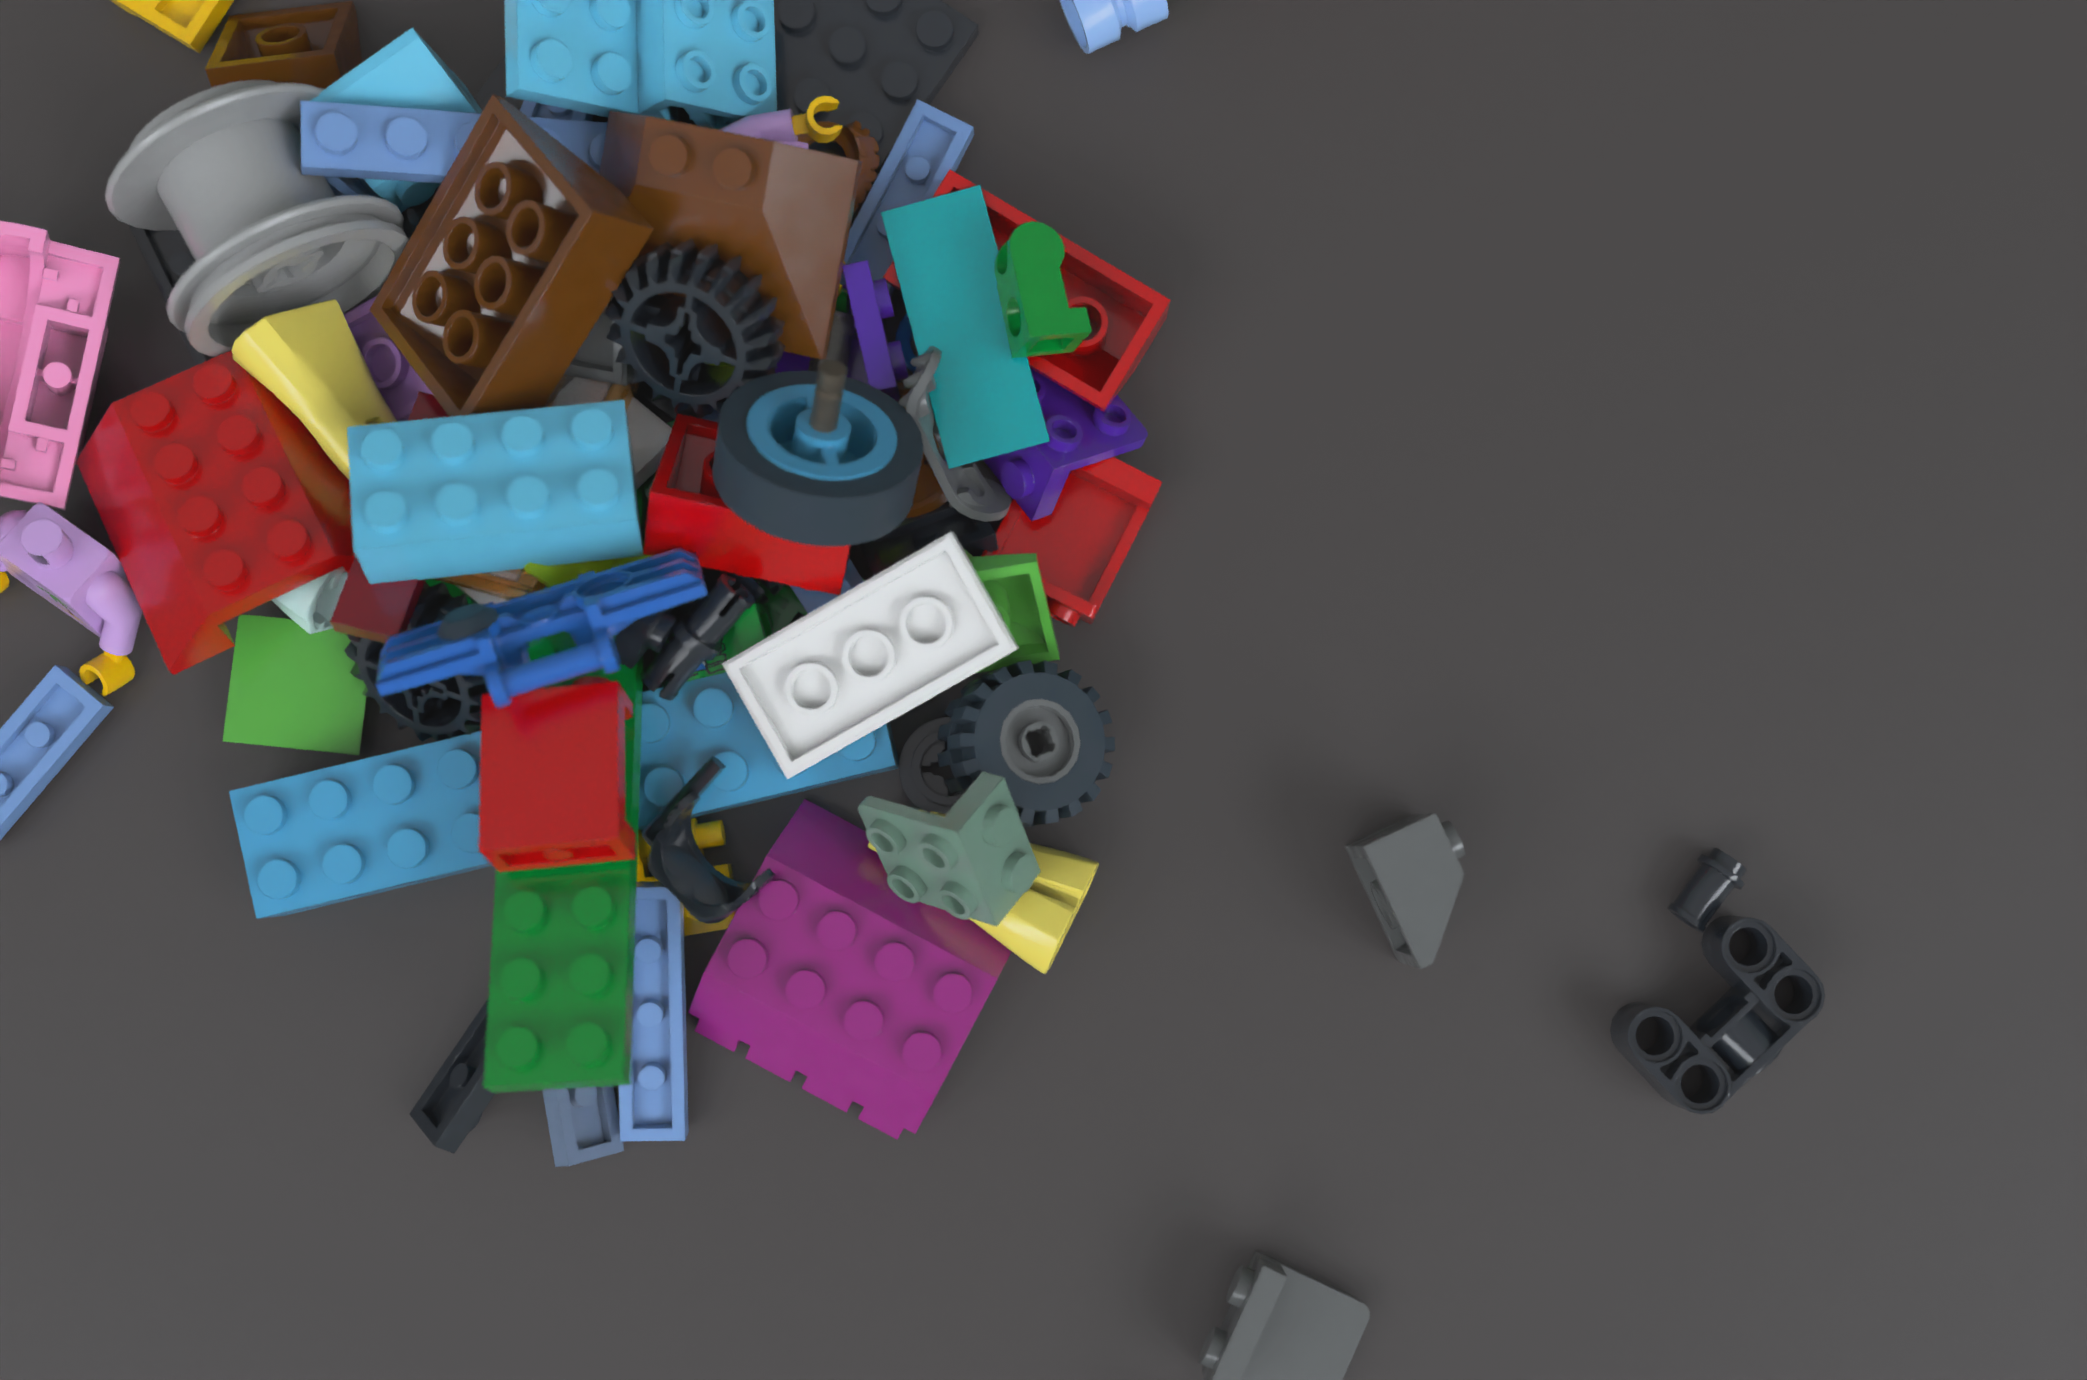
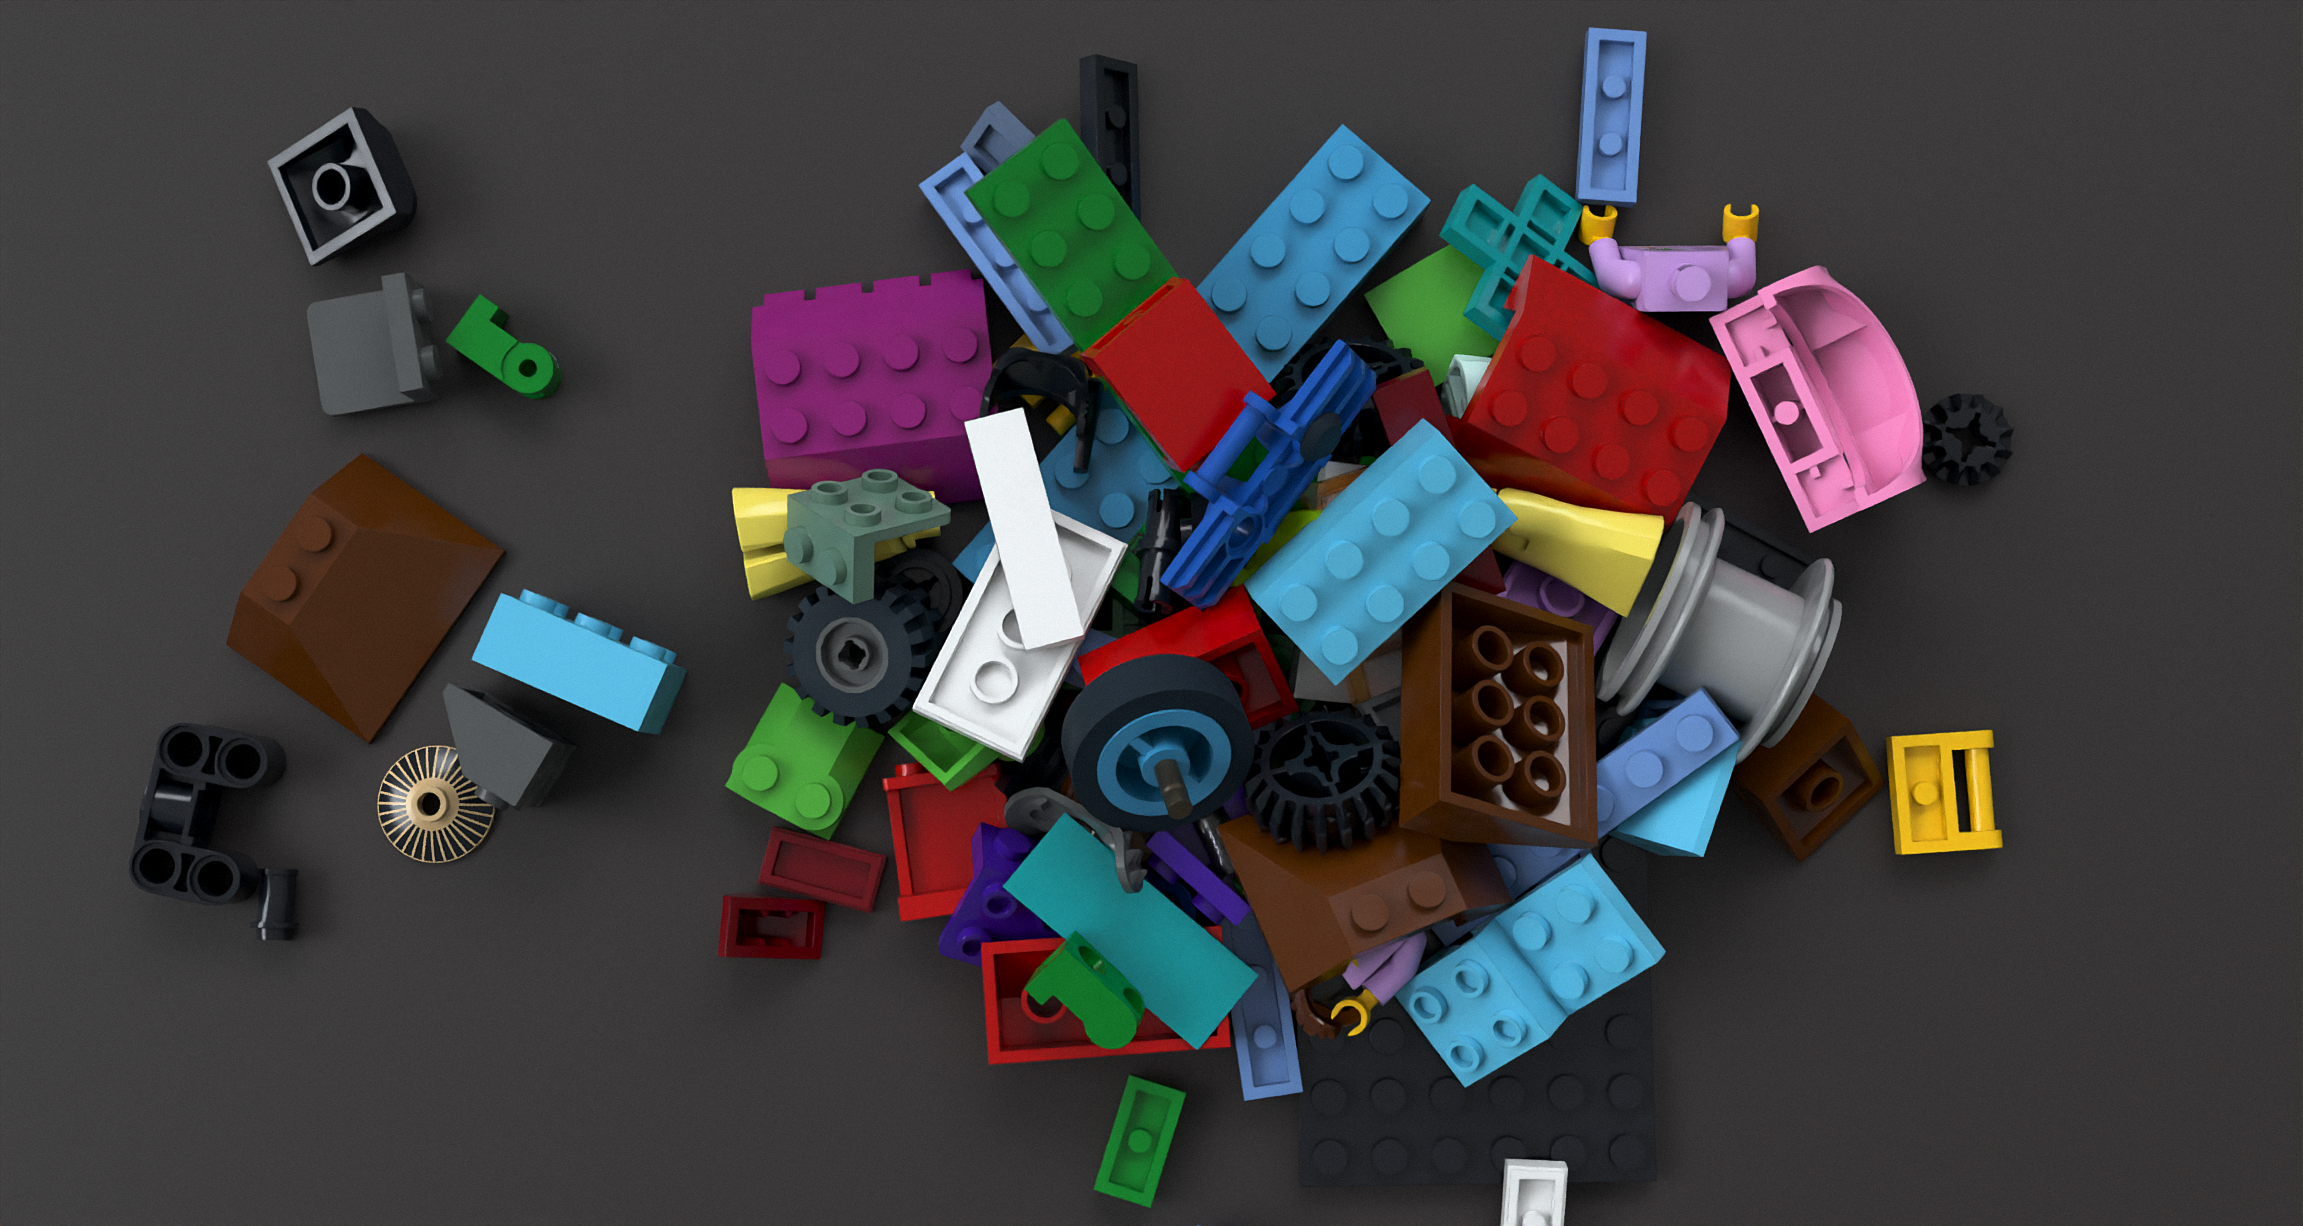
camera: 145 degrees right, 0 degrees up
(195, 703) = (1505, 239): none -> teal plate
(803, 739) = (1024, 531): none -> white tile
(1087, 159) = (1140, 1140): none -> green plate
(1155, 687) = (804, 764): none -> bright green slope
(1161, 1226) = (519, 365): none -> green leg
(1201, 583) = (822, 869): none -> dark red tile
(1280, 561) = (771, 927): none -> dark red slope
(1290, 912) = (581, 661): none -> medium azure brick
(1447, 1119) = (360, 594): none -> reddish brown slope
(1543, 890) = (458, 824): none -> dish

